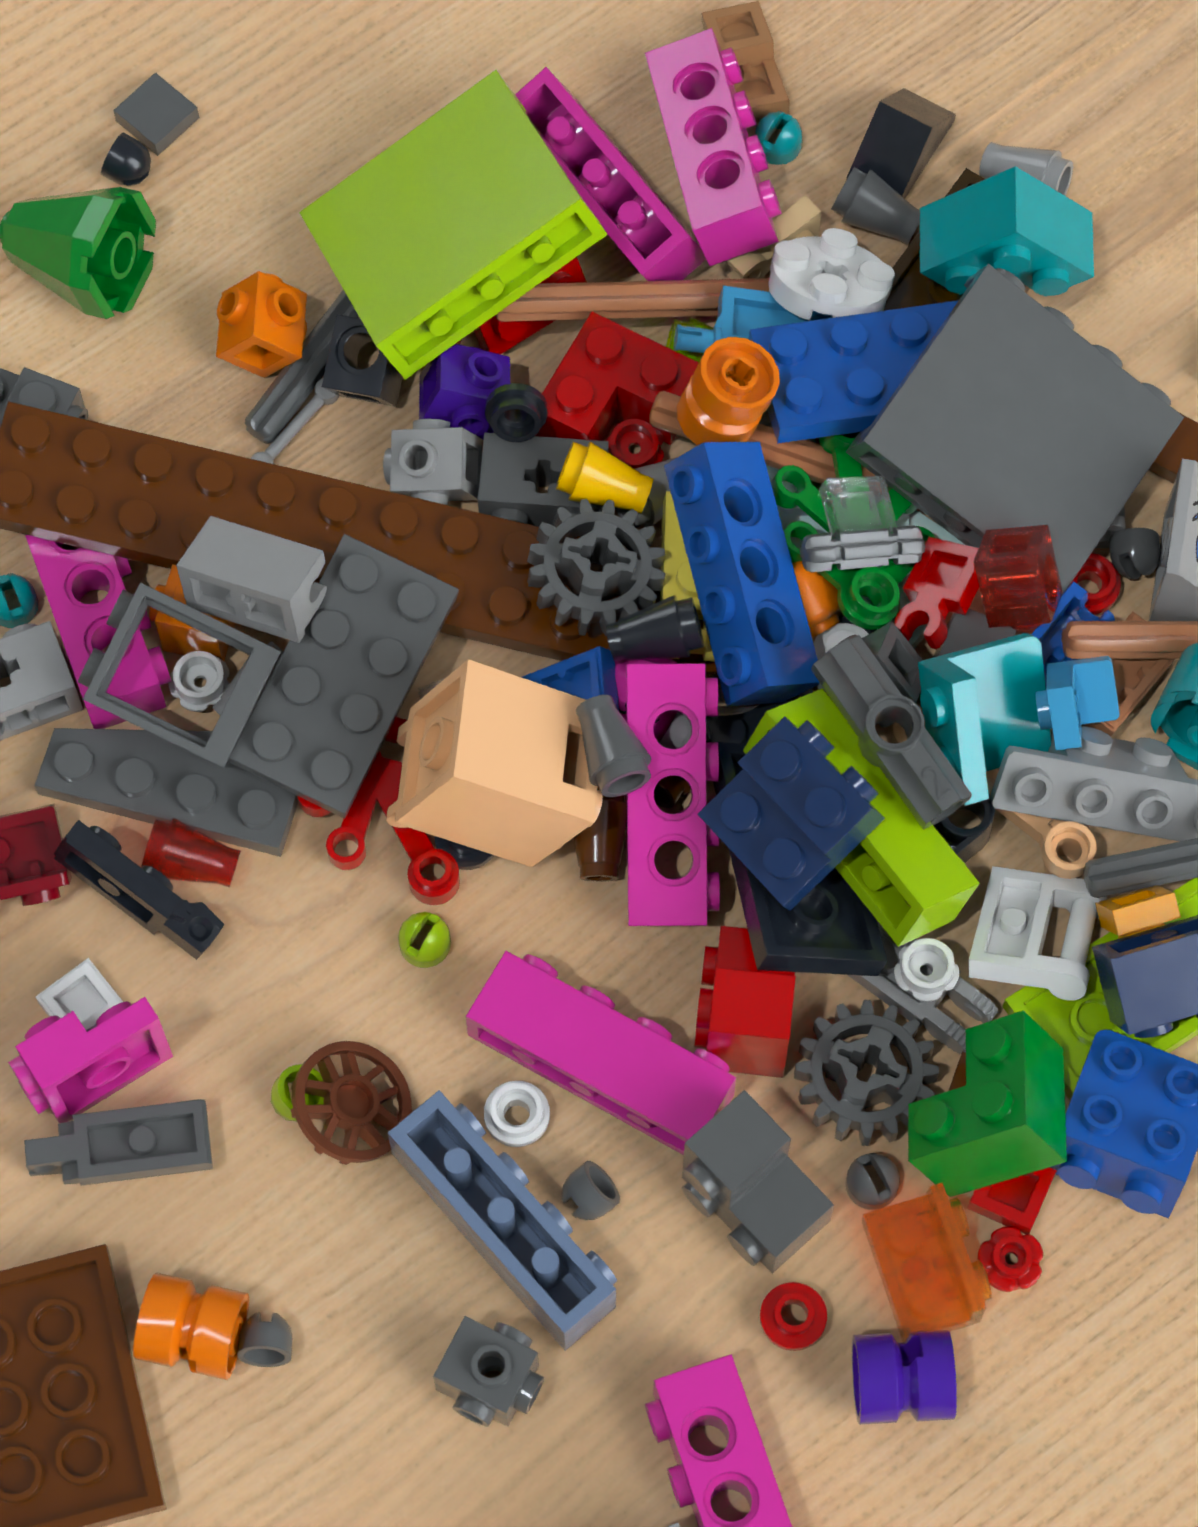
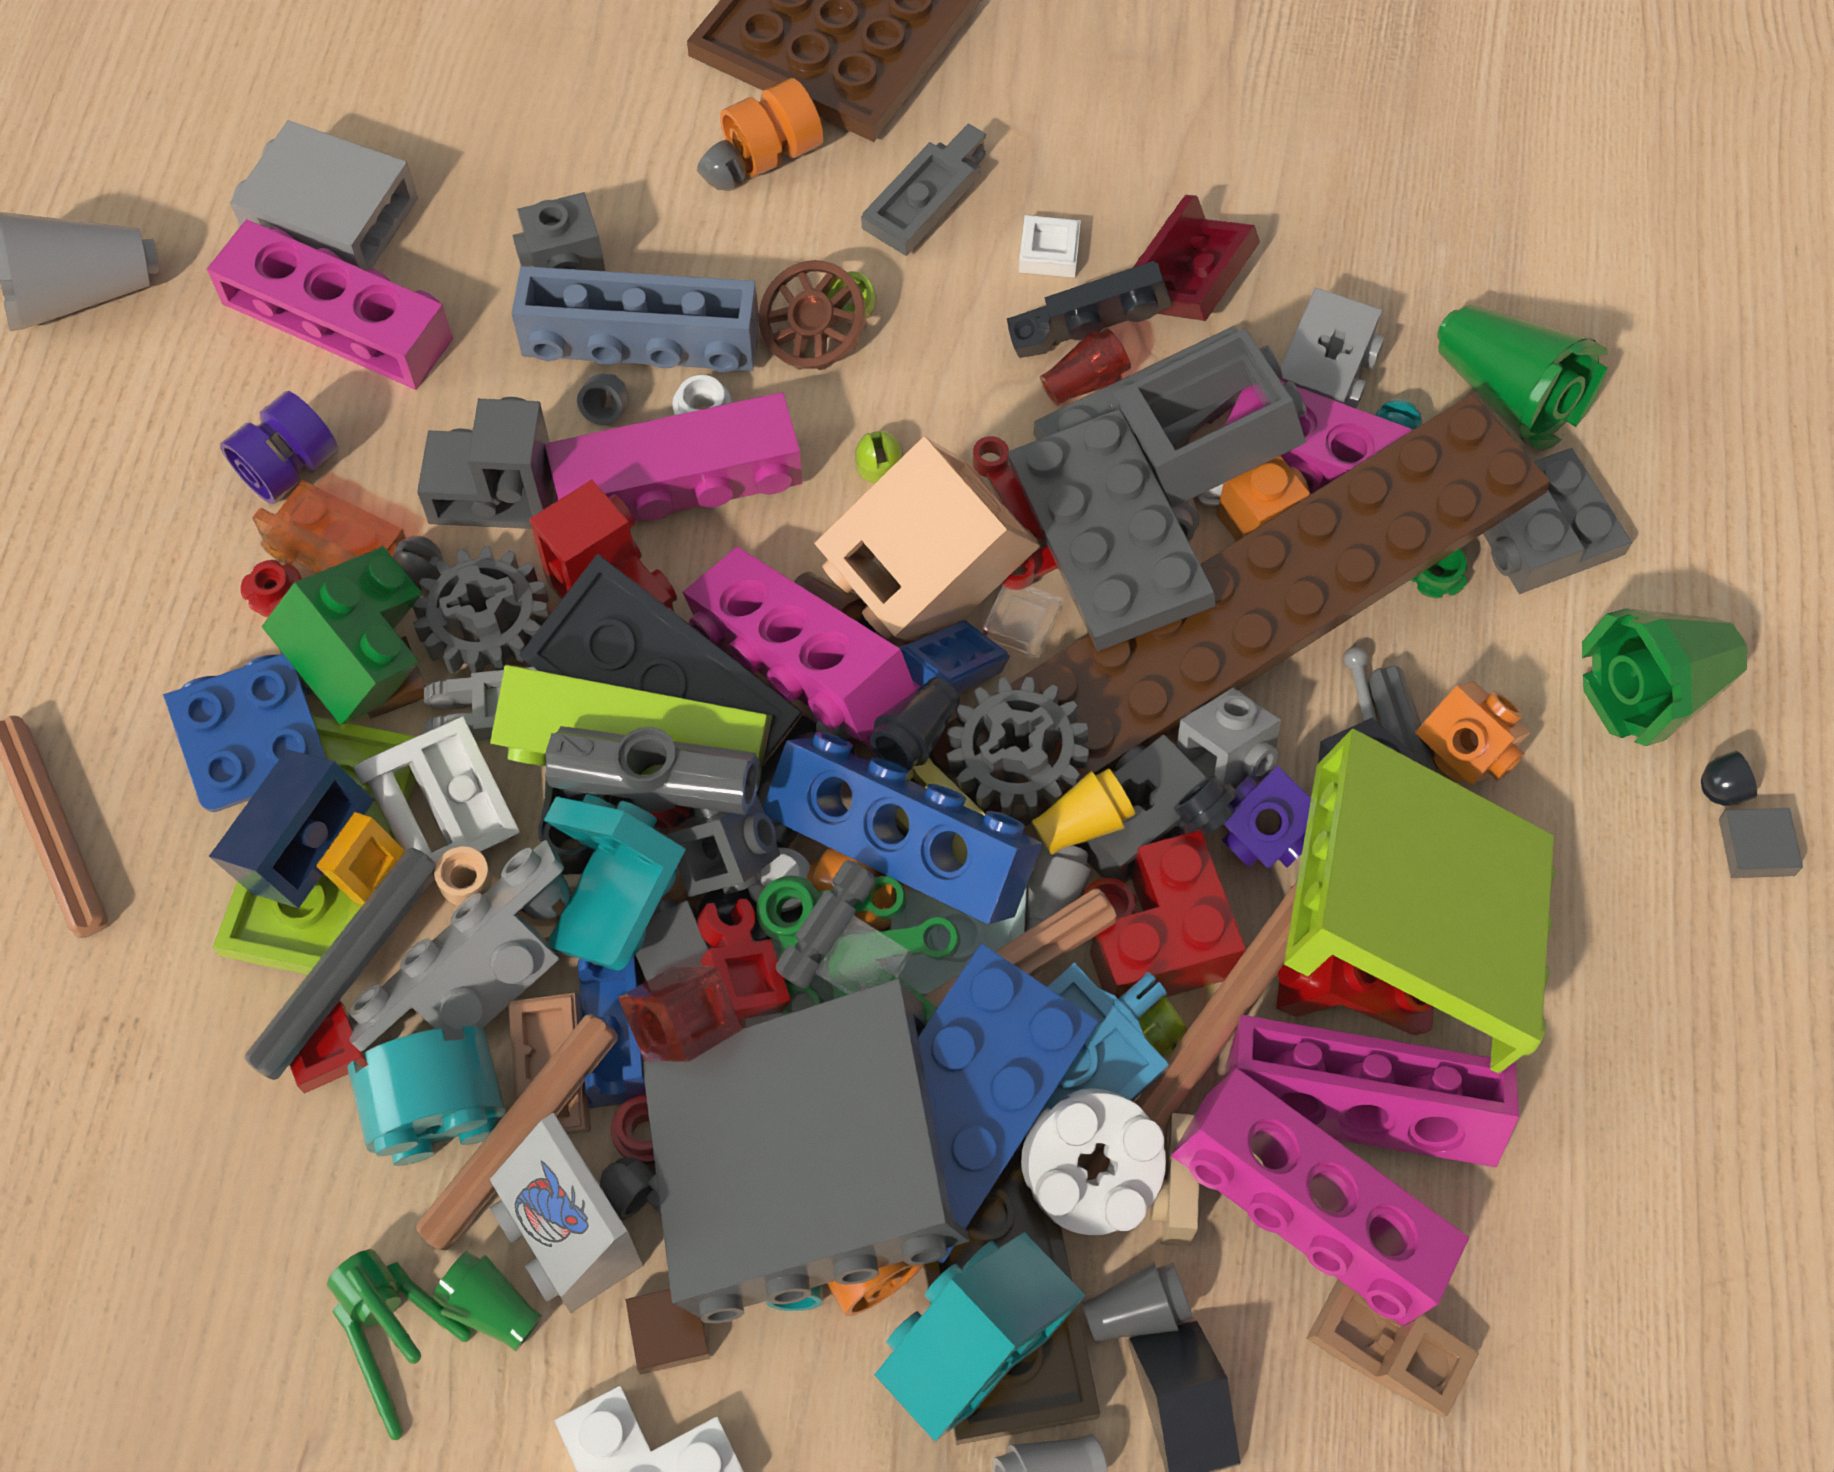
camera: 135 degrees right, 5 degrees down
(76, 1069) = (999, 186): dark pink plate -> none
(252, 578) = (1232, 490): light grey hinge -> none
(612, 750) = (849, 589): dark grey cone -> none
(728, 392) = (1048, 927): orange wheel -> none
(785, 1335) = (395, 451): red plate -> none
(788, 142) = (1277, 1306): teal hinge -> none
(792, 811) = (669, 655): dark blue plate -> none
(930, 953) = (478, 687): white plate -> none
(1077, 695) = (558, 962): dark azure bracket -> none

